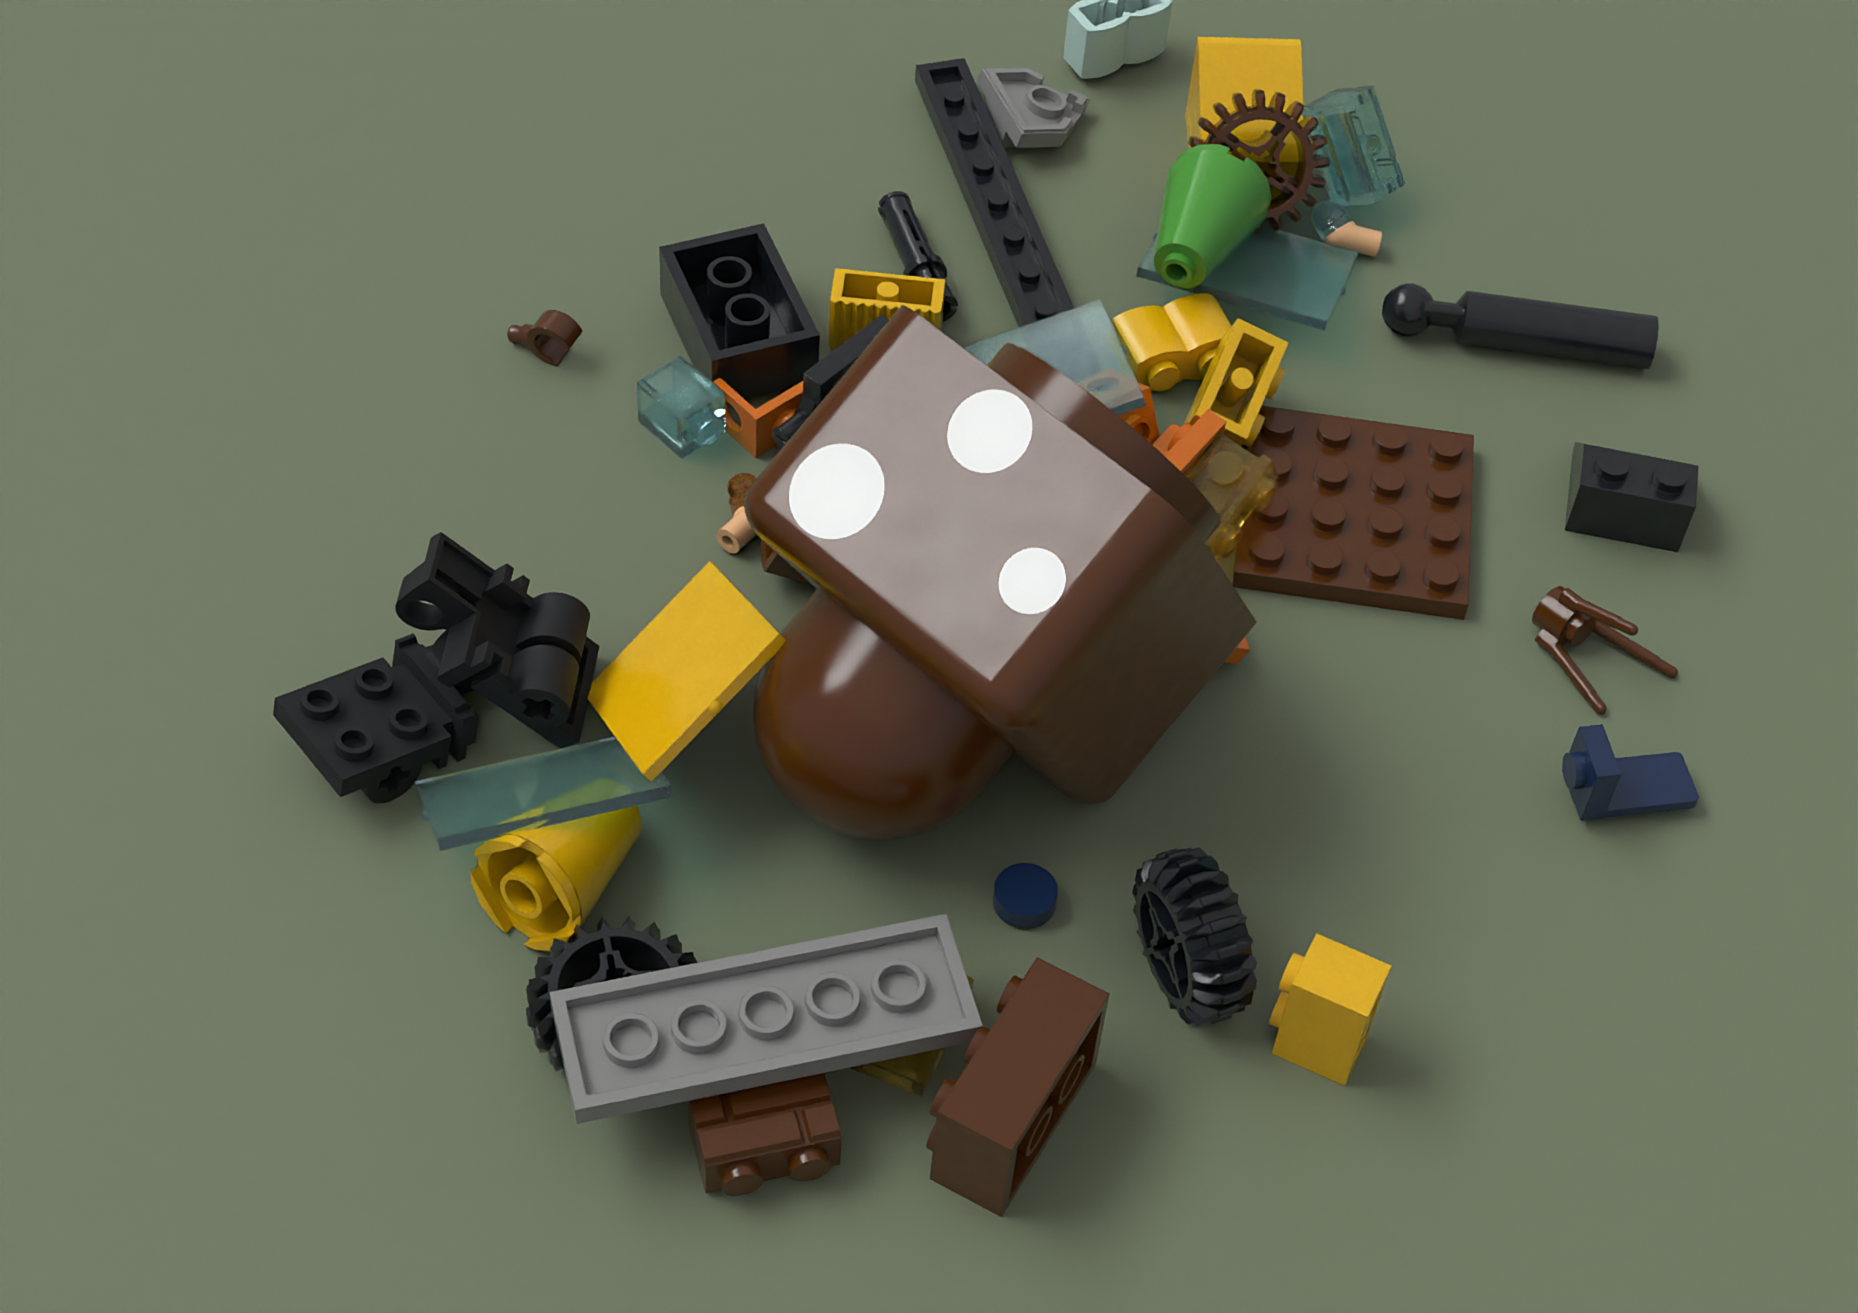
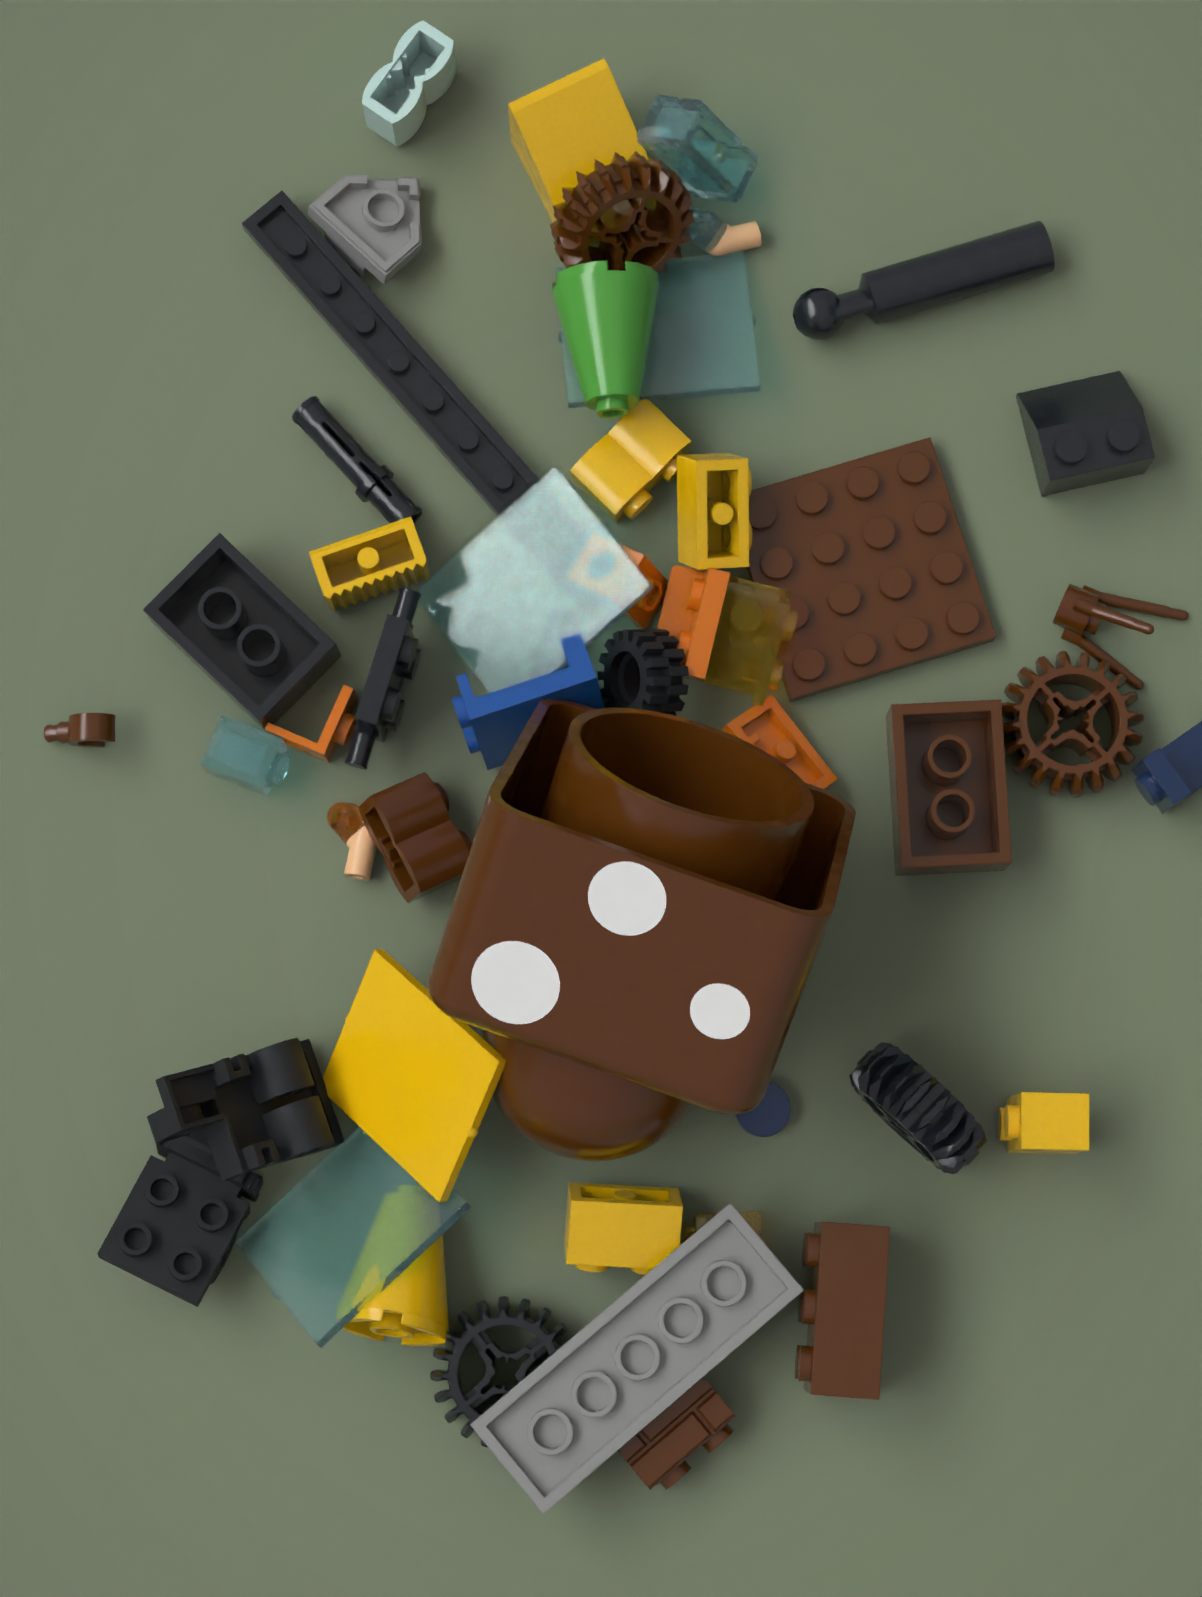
camera: 20 degrees left, 30 degrees up
(807, 902) = (621, 1226): none -> yellow brick
(1360, 690) = (948, 787): none -> reddish brown brick
(1506, 712) = (1103, 693): none -> reddish brown gear

